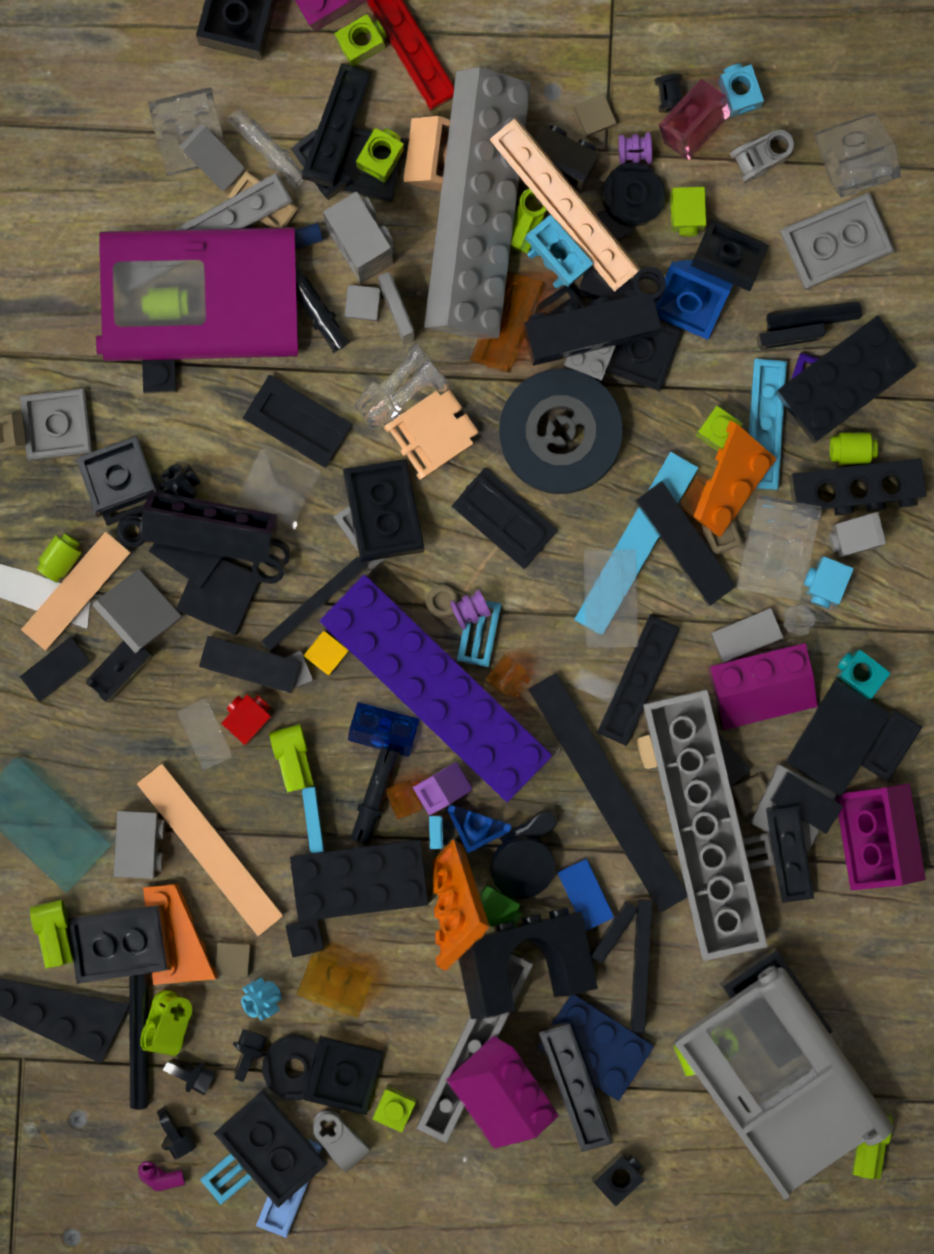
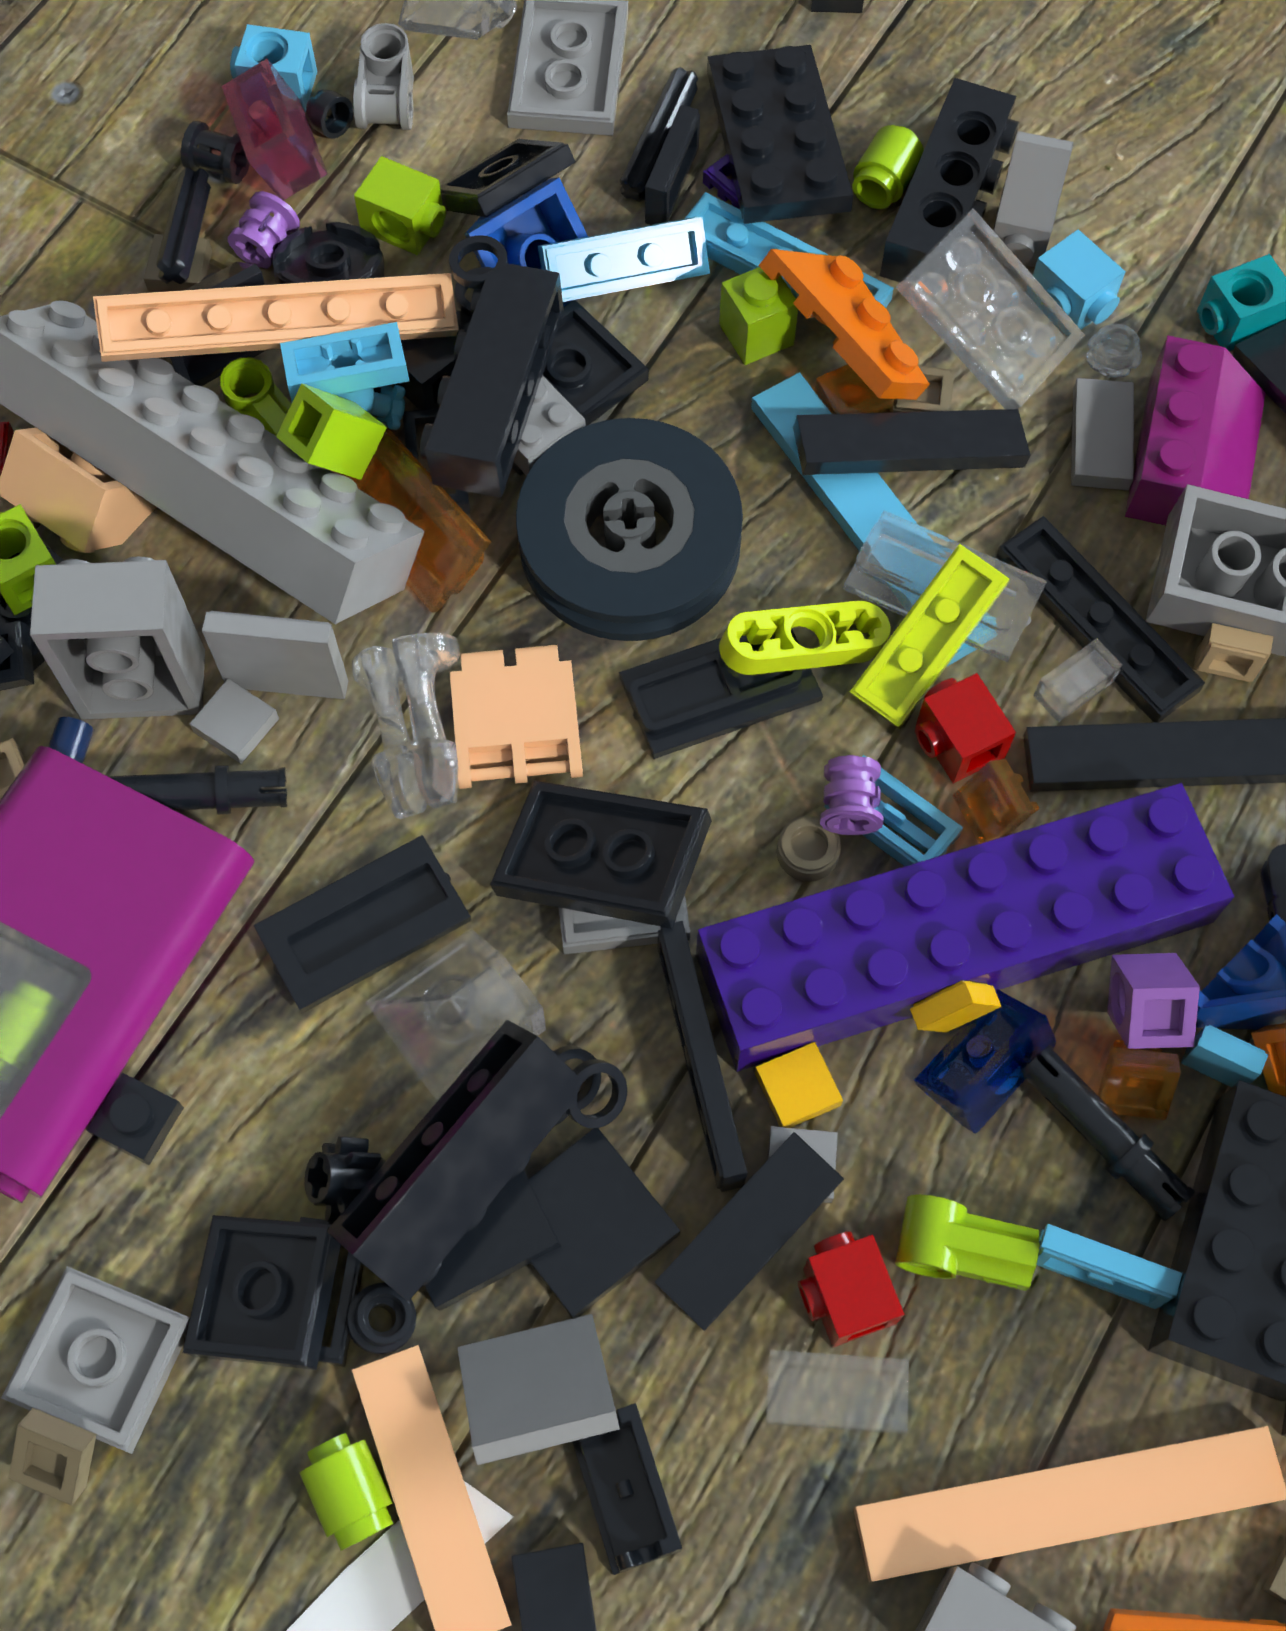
camera: 60 degrees left, 20 degrees down
(394, 703) = (955, 1006): none -> yellow tile
(519, 266) = (331, 432): none -> lime brick
(538, 641) = (963, 727): none -> red brick
(566, 558) = (786, 654): none -> neon yellow beam
(574, 605) = (929, 636): none -> neon yellow tile
(612, 108) = (183, 226): none -> black axle
(715, 345) = (628, 258): none -> tile
(730, 135) = (335, 107): none -> black hinge

